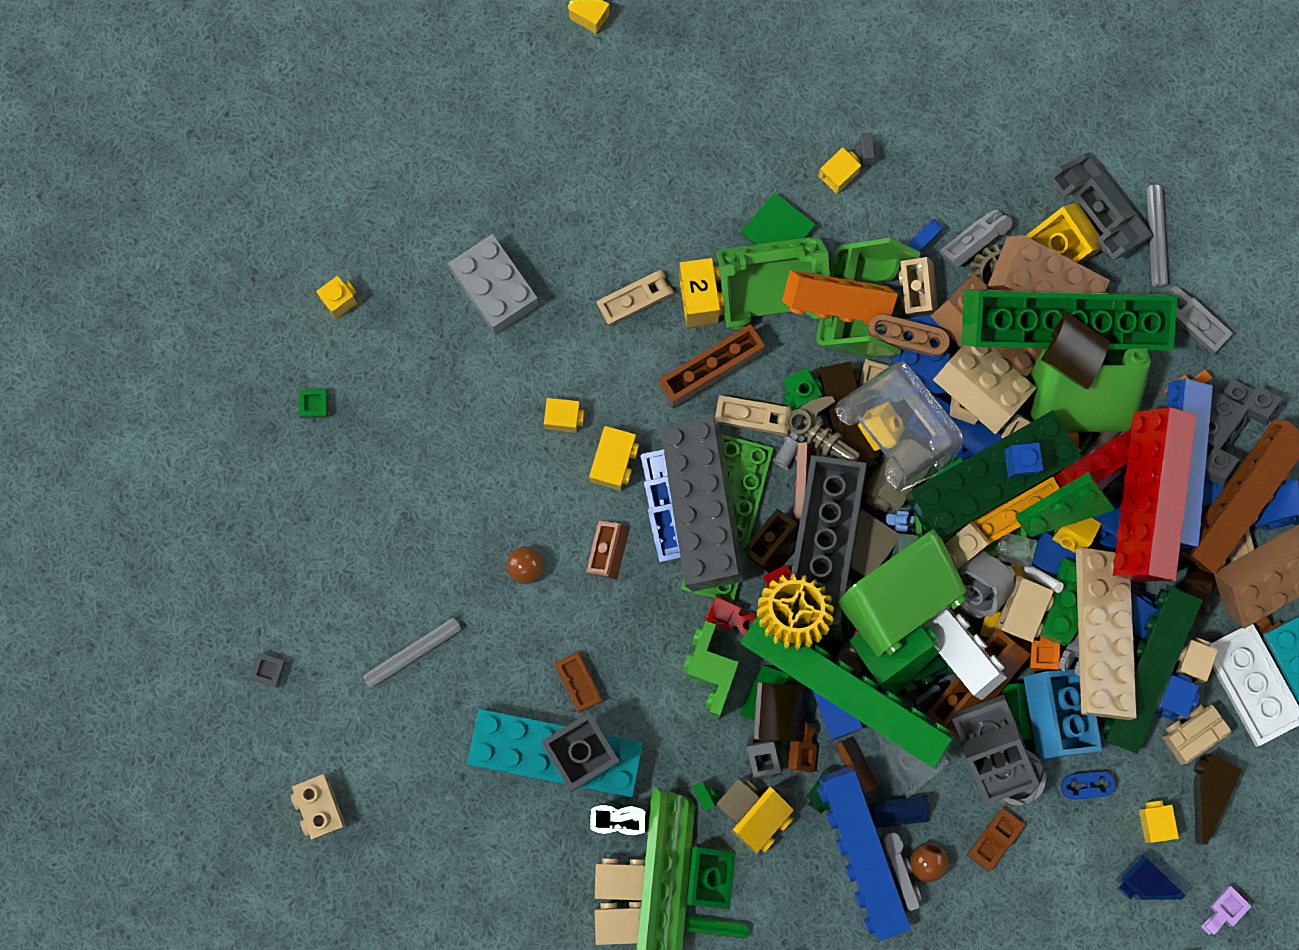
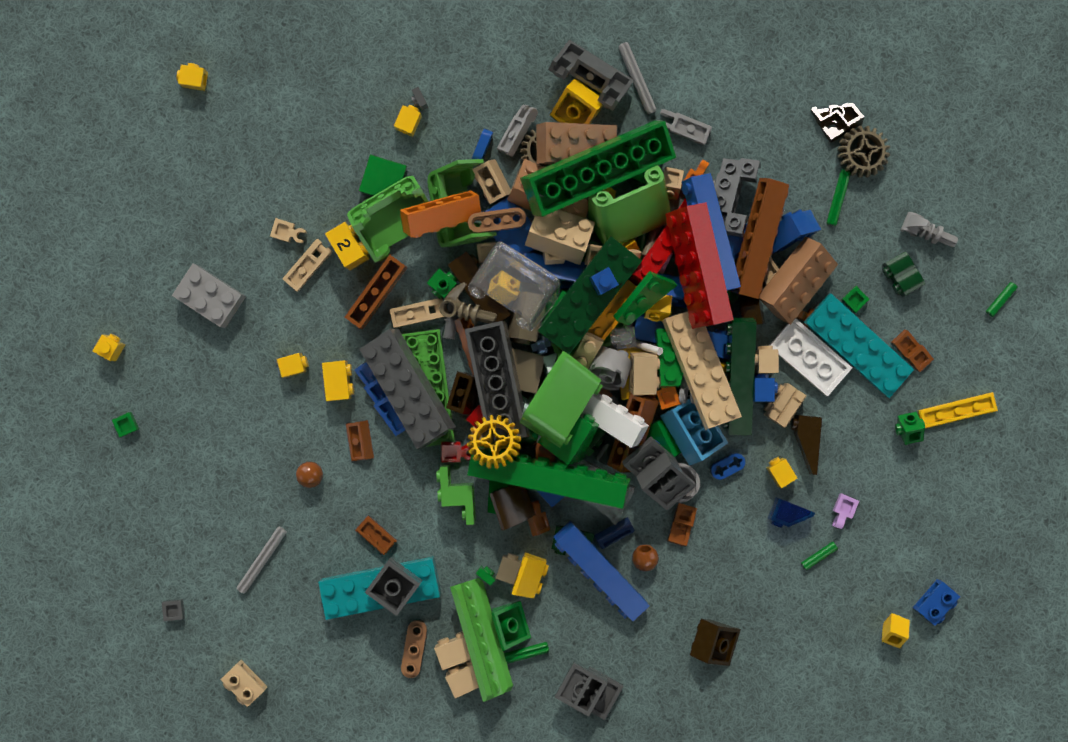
camera: 15 degrees left, 10 degrees up
(553, 865) = (418, 641): none -> medium nougat plate
(618, 817) = (437, 612): brick -> none
(624, 244) = (285, 231): none -> tan plate
(760, 766) = (515, 536): dark grey brick -> none
(852, 757) = (575, 514): dark orange slope -> none
(901, 870) = (629, 568): light grey hinge -> none
(1076, 351) = (611, 189): dark brown slope -> none
(1156, 384) = (673, 180): none -> tan bracket

